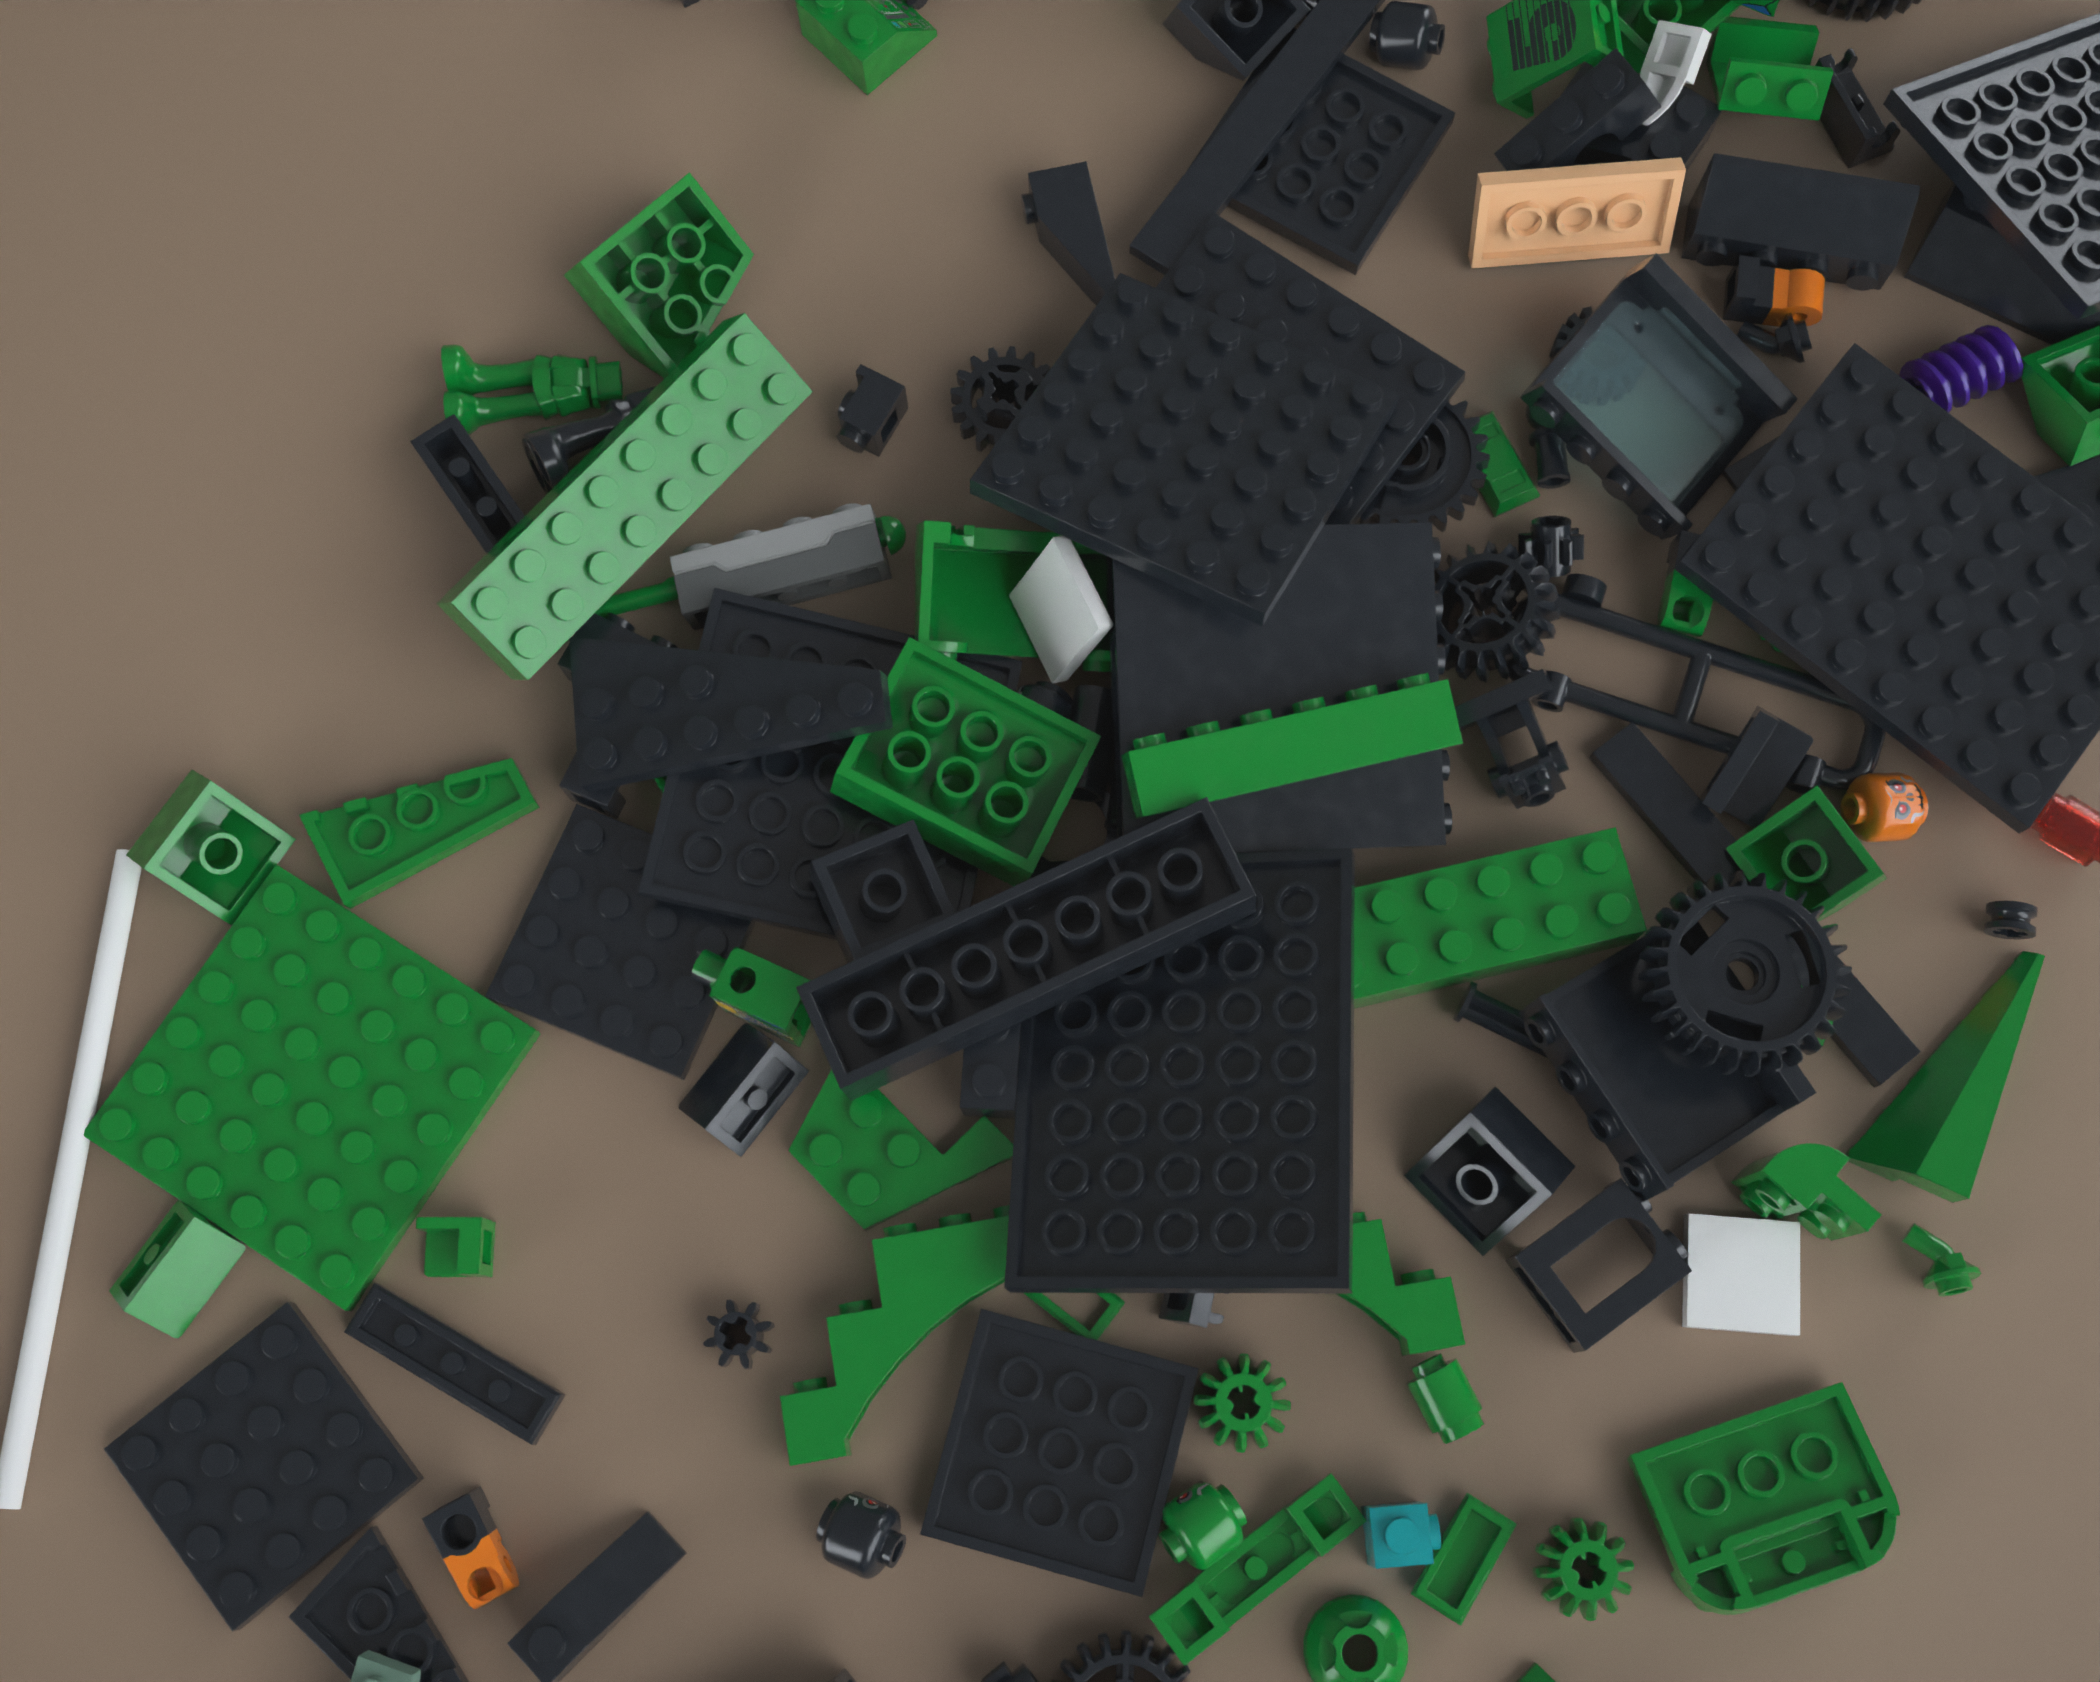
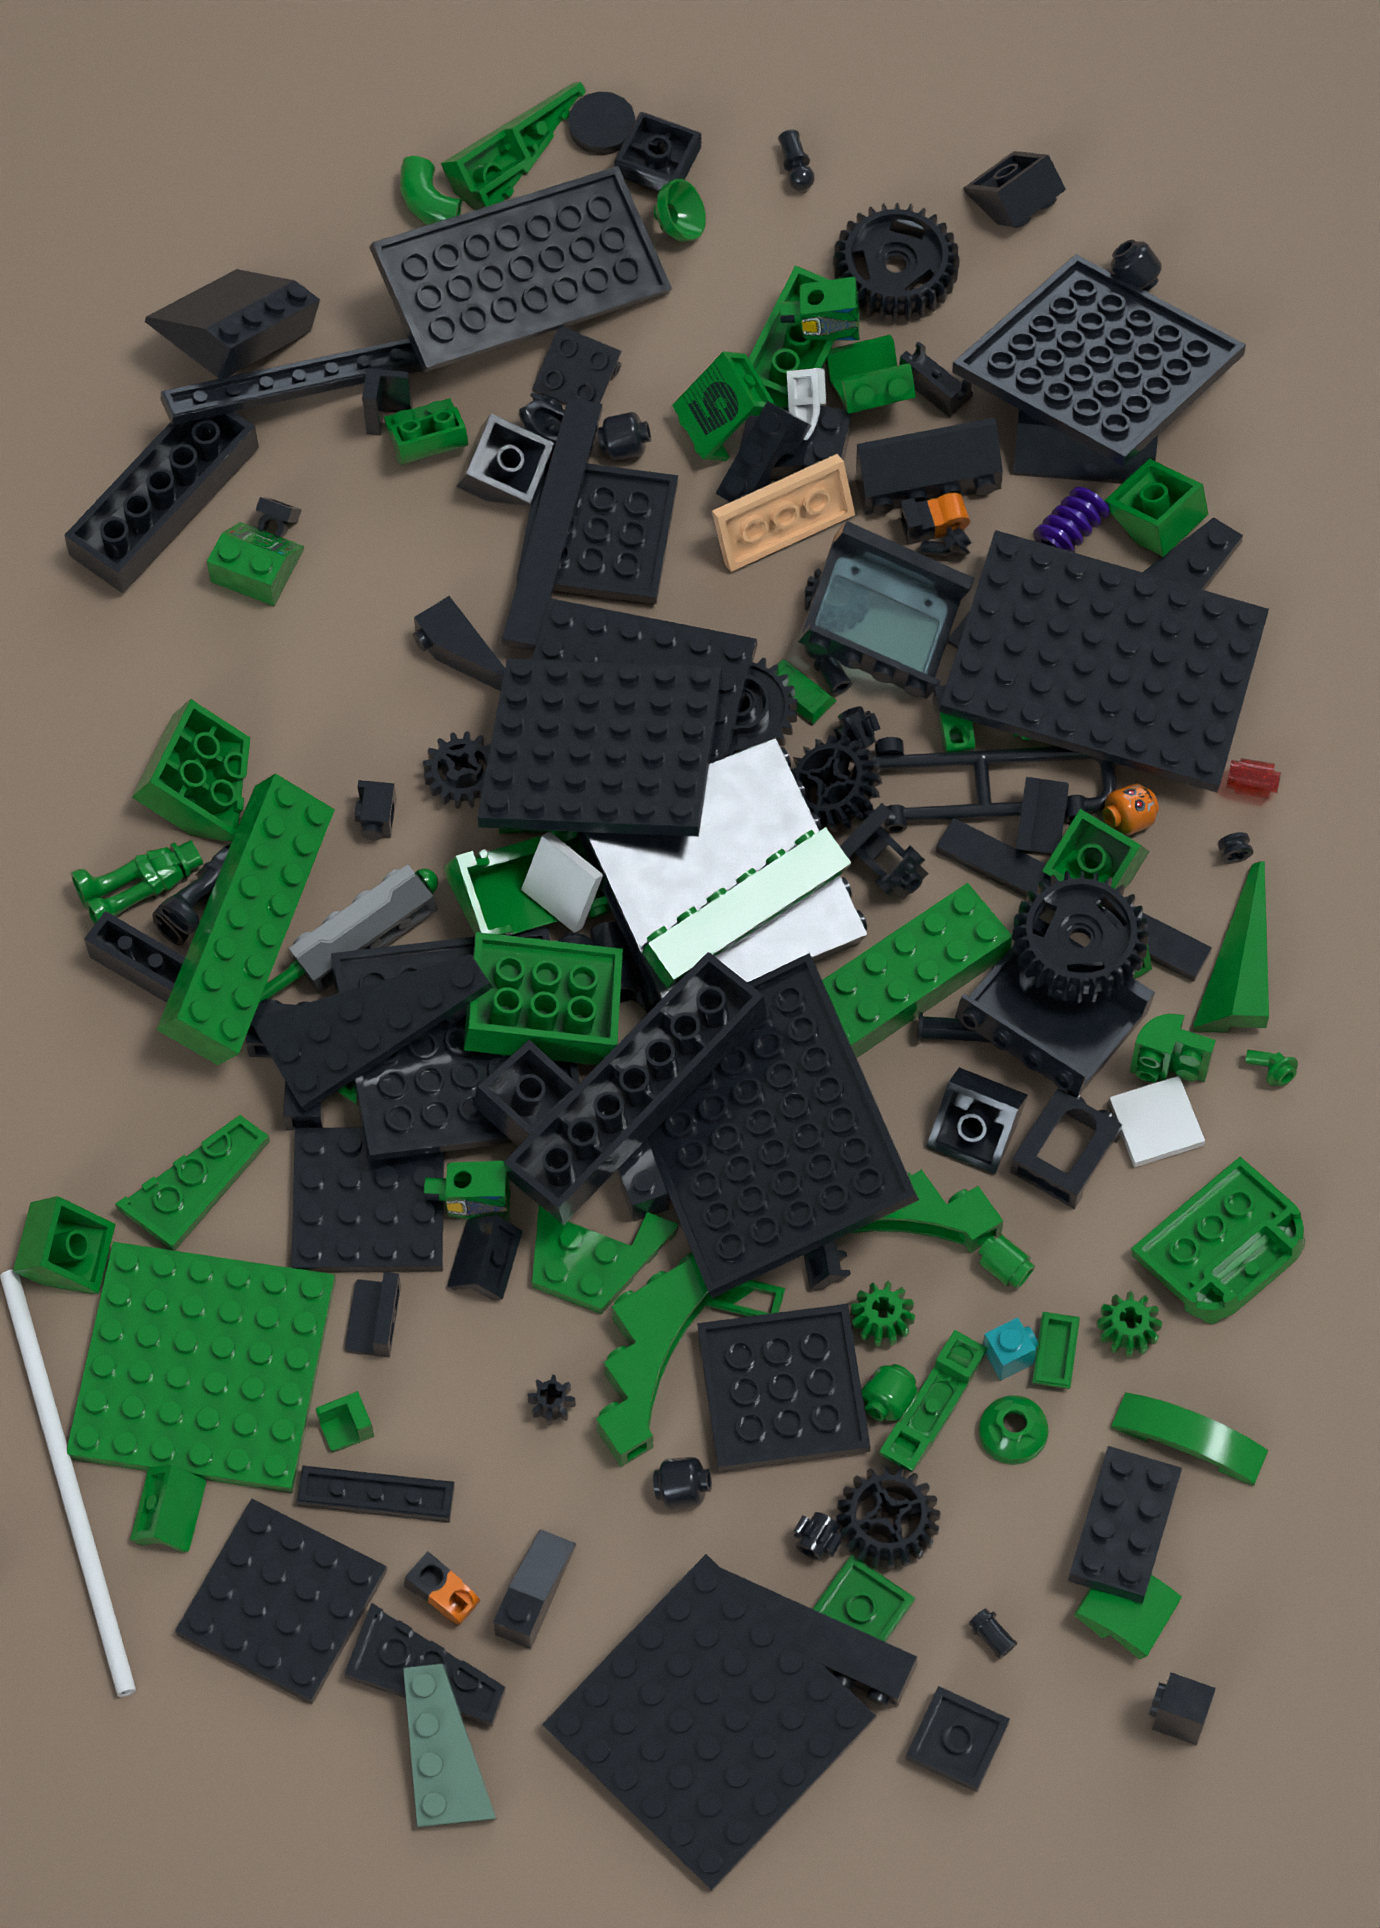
camera: 25 degrees left, 10 degrees down
(563, 1109) = (373, 1316): none -> black panel

